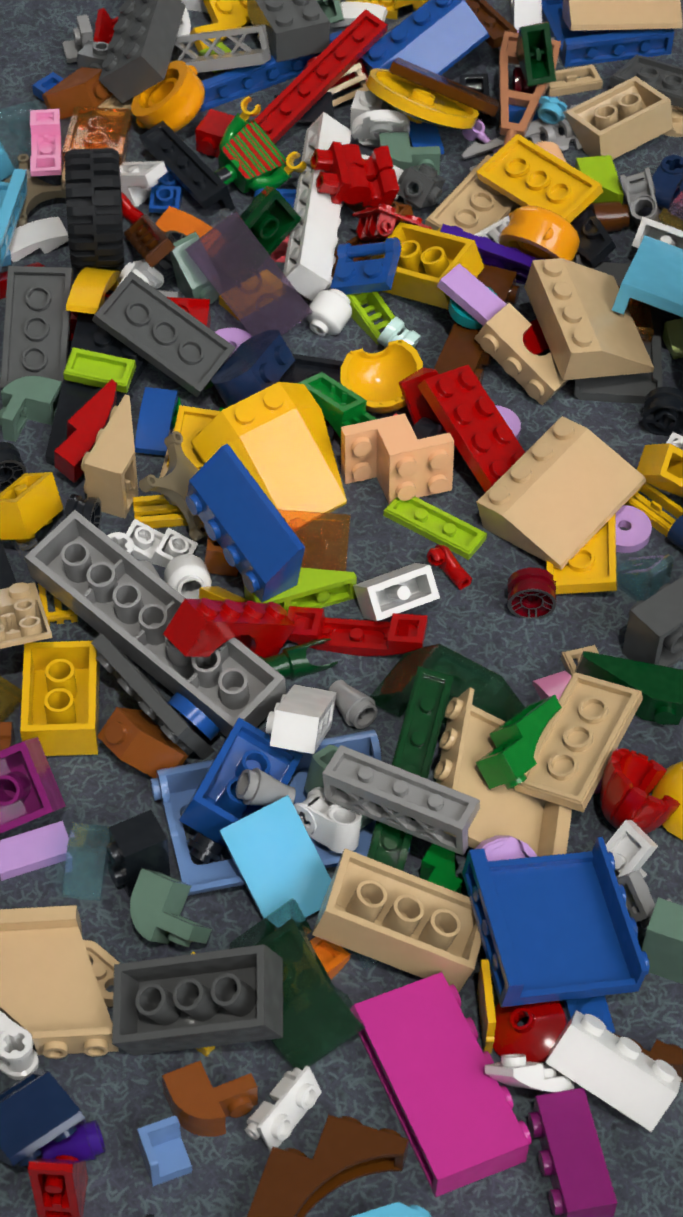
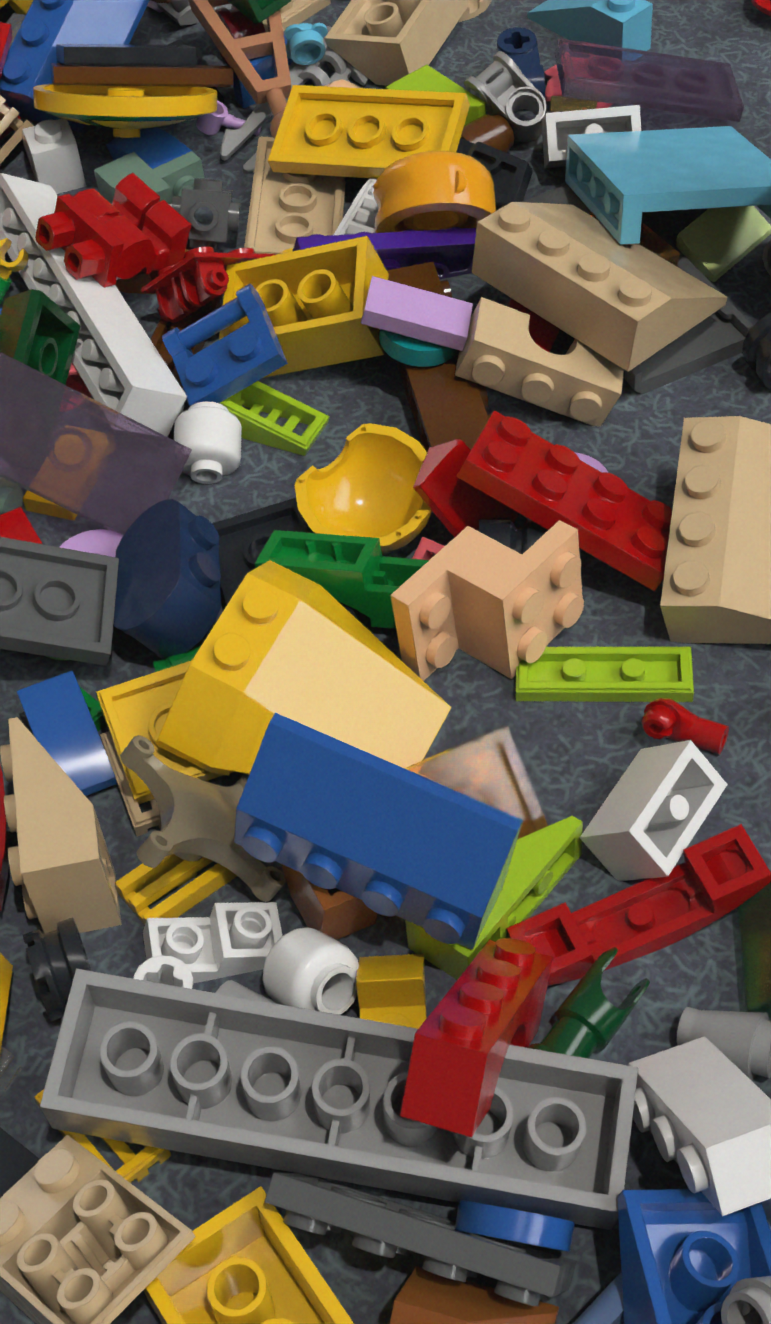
camera: 25 degrees left, 0 degrees up
(369, 125) = (75, 164): white tile -> none
(395, 331) = (332, 425): light aqua wheel -> none
(443, 71) = (126, 55): none -> black tile

